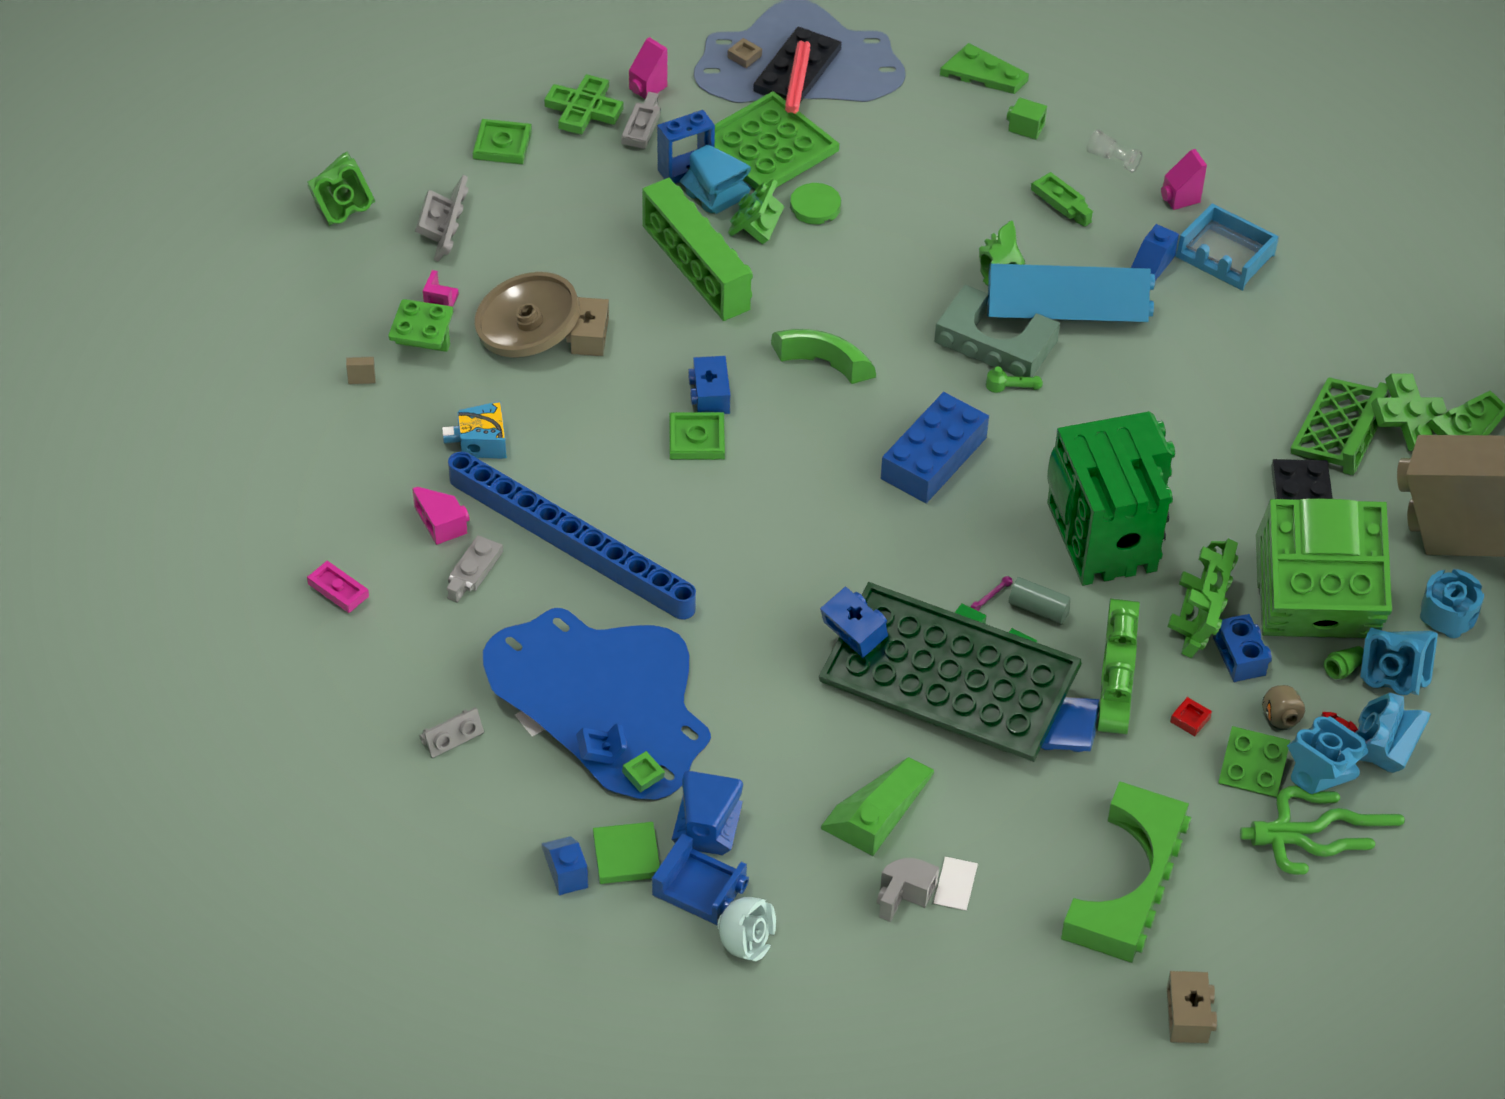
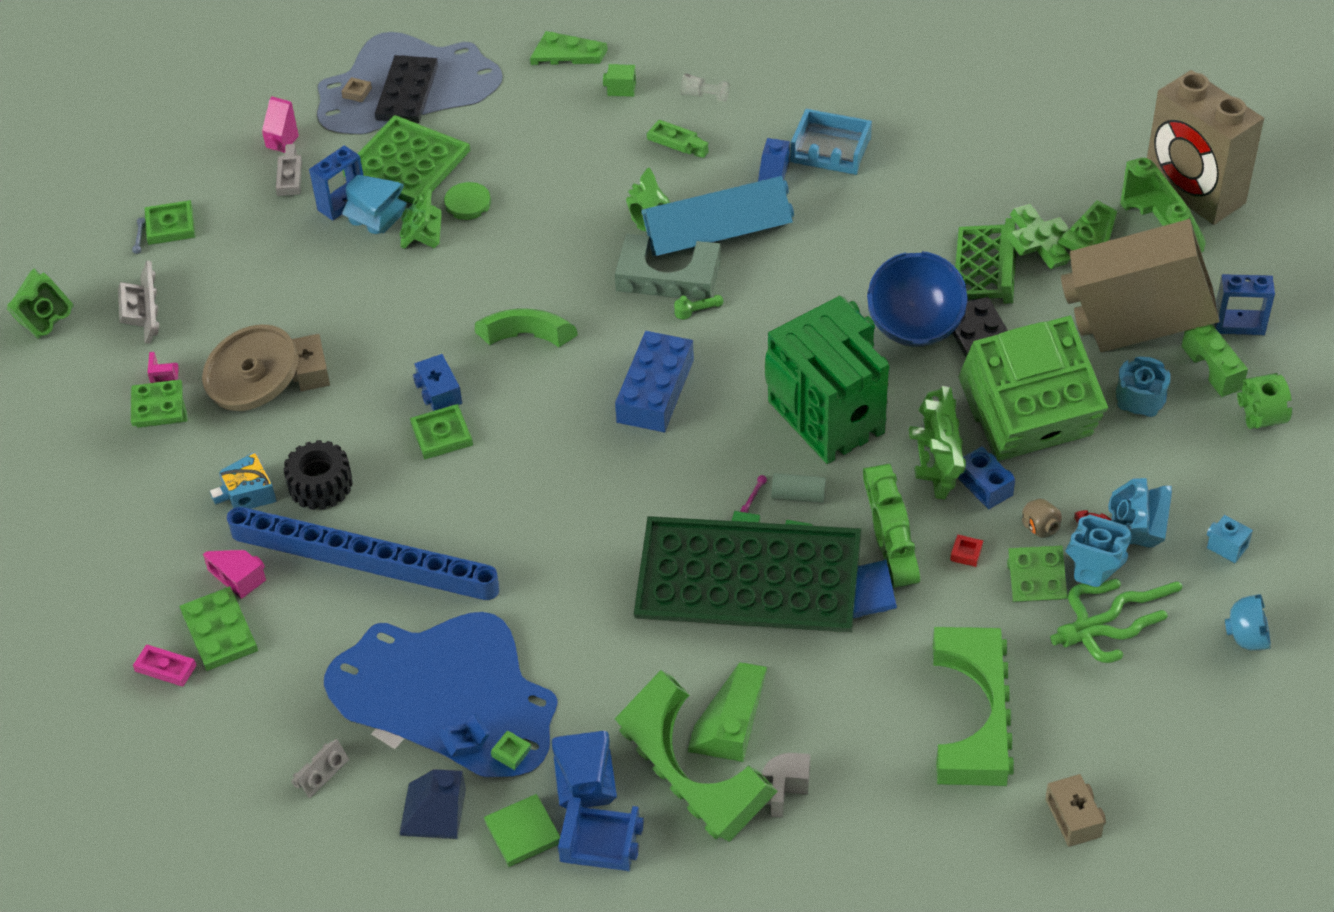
camera: 15 degrees left, 0 degrees up
(360, 370) = (115, 460): dark tan tile -> none
(403, 566) = (218, 628): none -> bright green plate
(459, 160) = (136, 249): none -> sand blue hinge
(473, 567) = (283, 609): light grey hinge -> none
(549, 801) = (434, 805): none -> dark blue slope
(566, 864) = (472, 858): blue slope -> none
(570, 438) = (314, 460): none -> black tyre
(583, 104) = (231, 170): bright green plate -> none
(697, 249) = (381, 267): bright green brick -> none
(746, 927) = (659, 865): light aqua cylinder -> none
(790, 789) = (650, 724): none -> bright green arch
(797, 77) = (412, 97): coral axle -> none
(854, 621) = (656, 565): blue brick -> none
(955, 883) = (825, 763): white sticker -> none
(1185, 181) = (775, 96): dark pink slope -> none
(1242, 440) = (917, 298): none -> blue piece
(1343, 662) = (1074, 465): bright green cone -> none
(1399, 660) = (1121, 448): dark azure piece -> none
(1457, 880) = (1249, 623): none -> dark azure cylinder
(1476, 787) = (1229, 538): none -> dark azure brick

